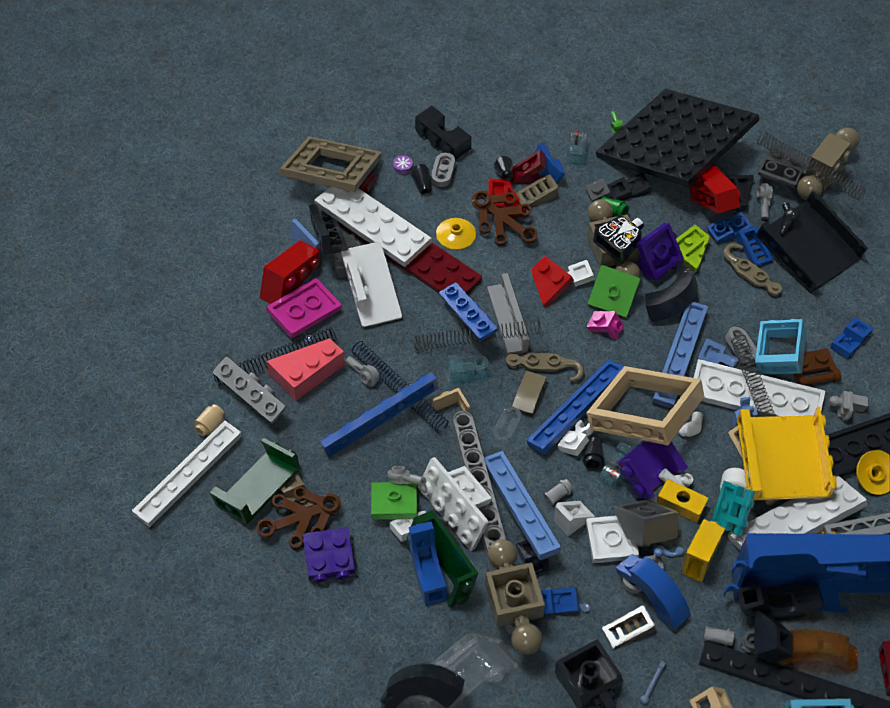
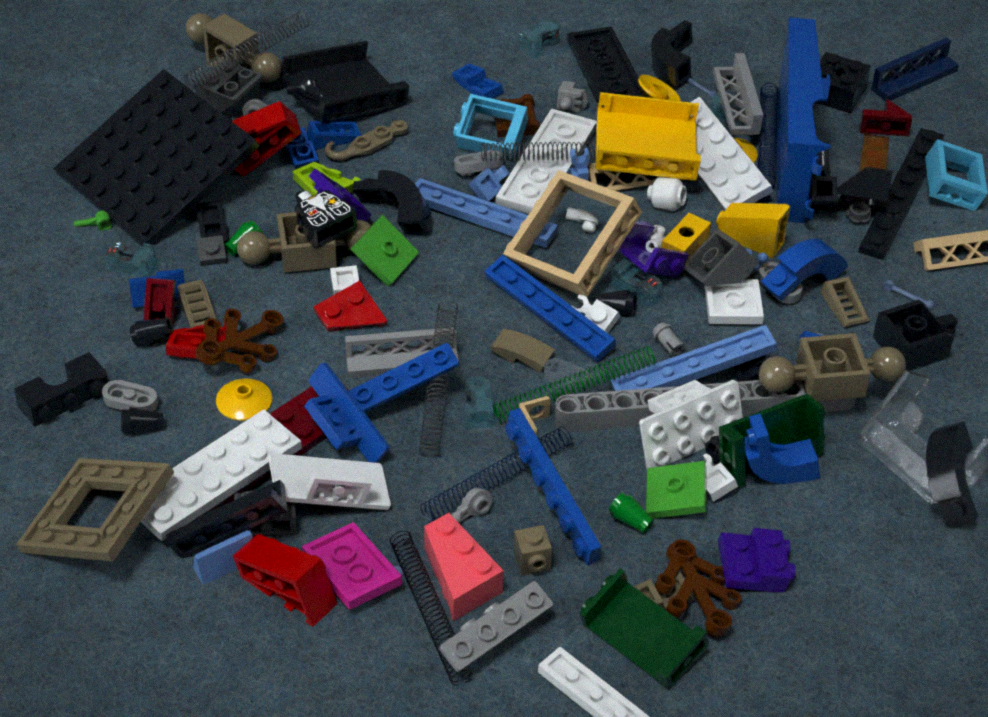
camera: 85 degrees left, 10 degrees down
(209, 420) = (534, 685): tan brick -> none
(323, 410) = (532, 550): none -> dark tan brick
(369, 471) = (629, 512): none -> green cone
(400, 475) = (640, 481): light grey plate -> none
(402, 164) = (103, 442): medium lavender tile -> none
(427, 279) = (342, 417): none -> blue bracket
(488, 428) = (582, 383): none -> green piece
(545, 362) = (477, 331): dark tan piece -> none
(571, 516) = (705, 329): white slope -> none
(606, 322) = (426, 269): dark pink bracket -> none
(719, 636) = (855, 231): light grey pin -> none
(728, 505) = (702, 195): teal plate -> none

